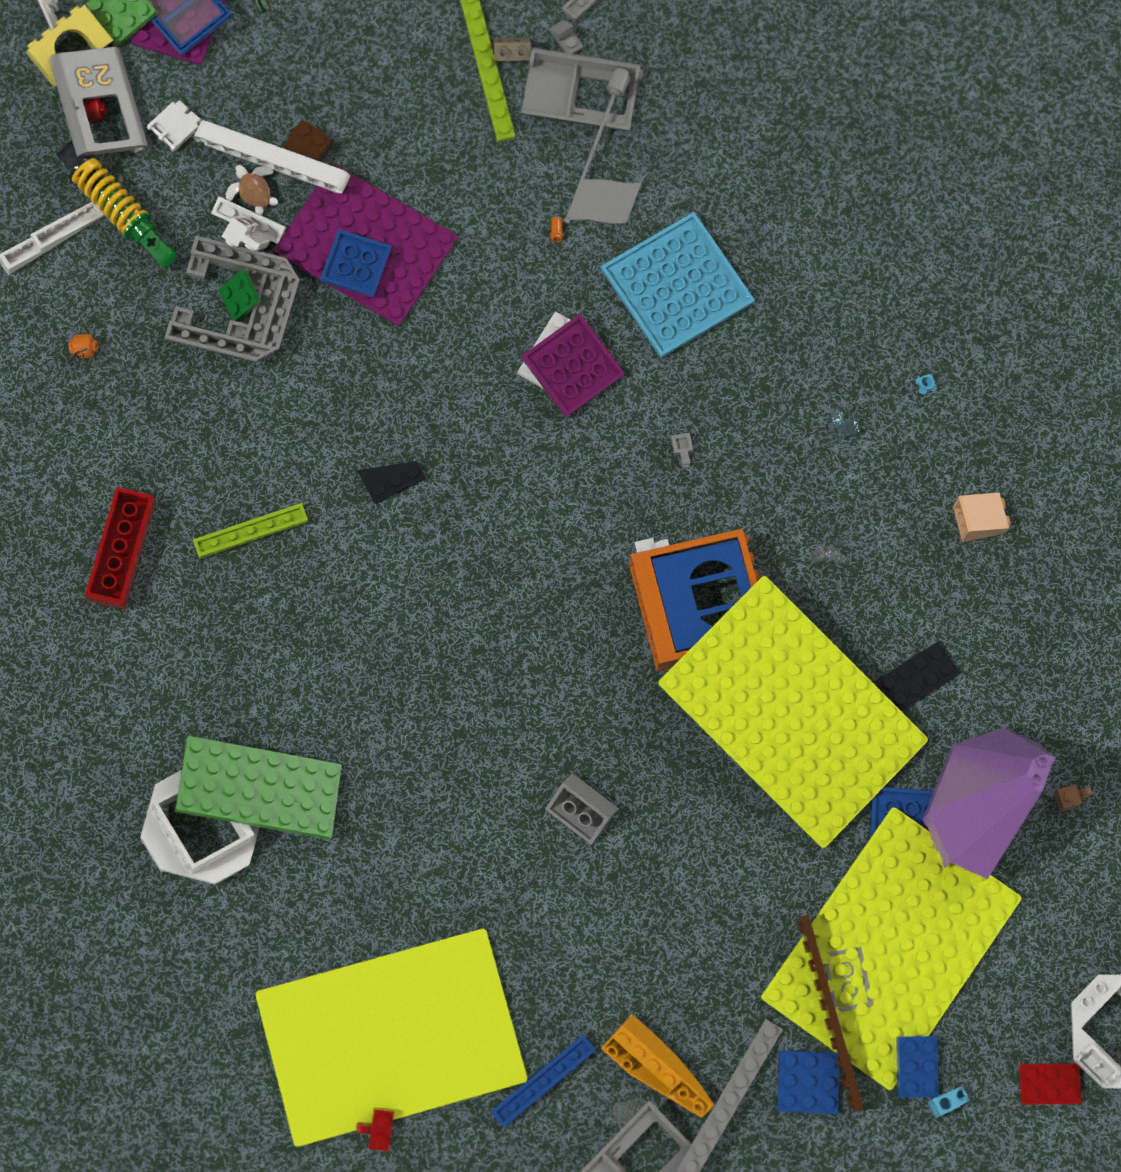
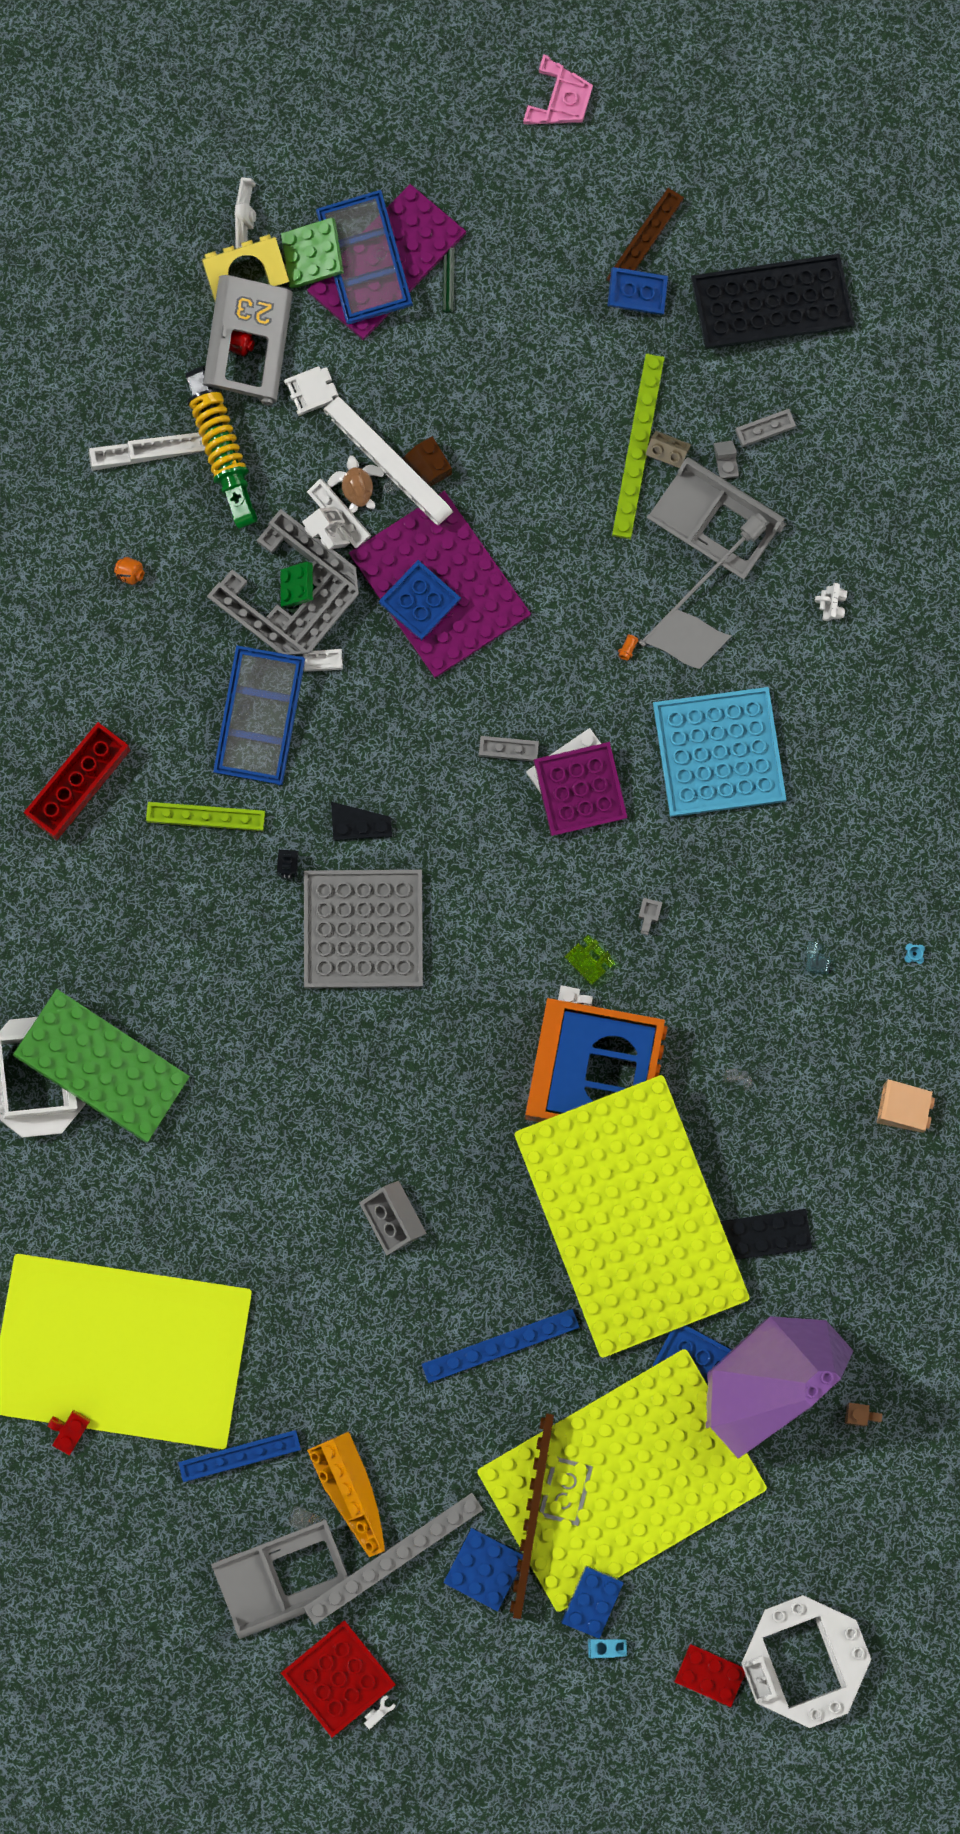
camera: 30 degrees right, 5 degrees up
(258, 421) = (259, 715): none -> clear door
(293, 352) = (323, 660): none -> white plate
(343, 540) = (287, 864): none -> black brick
(437, 568) = (363, 929): none -> light grey plate
(492, 358) = (508, 748): none -> light grey plate
(647, 514) = (585, 963): none -> clear neon green plate
(712, 119) = (829, 601): none -> white hips
(729, 878) = (500, 1345): none -> blue plate

